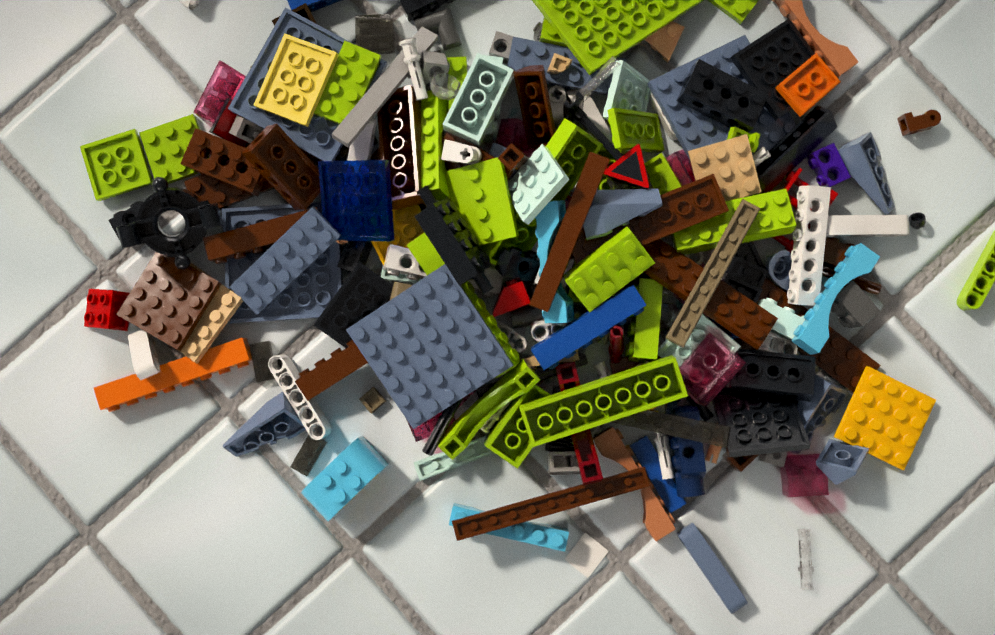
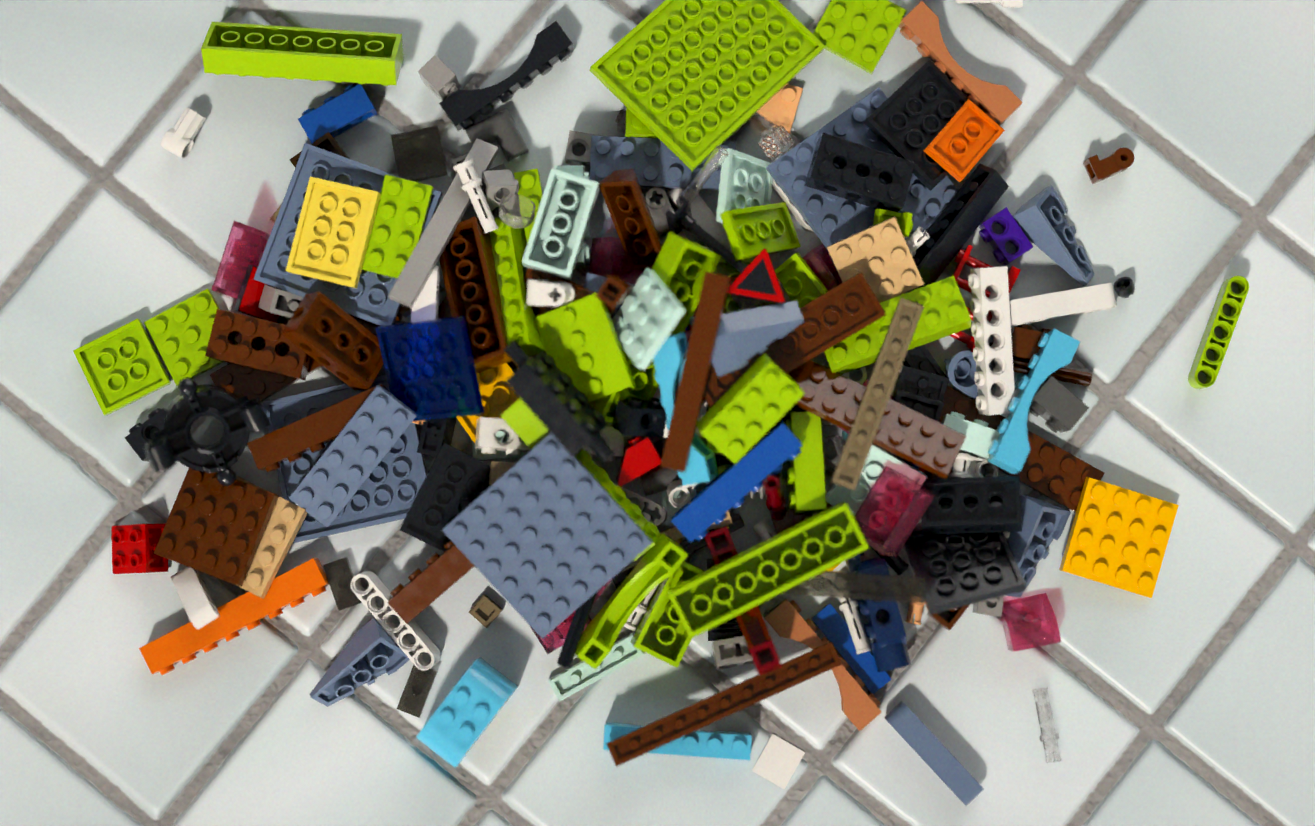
camera: 10 degrees left, 0 degrees up
(559, 64) = (653, 162): tan tile -> none
(657, 64) = (775, 141): none -> clear head
(841, 460) = (1070, 597): sand blue slope -> none

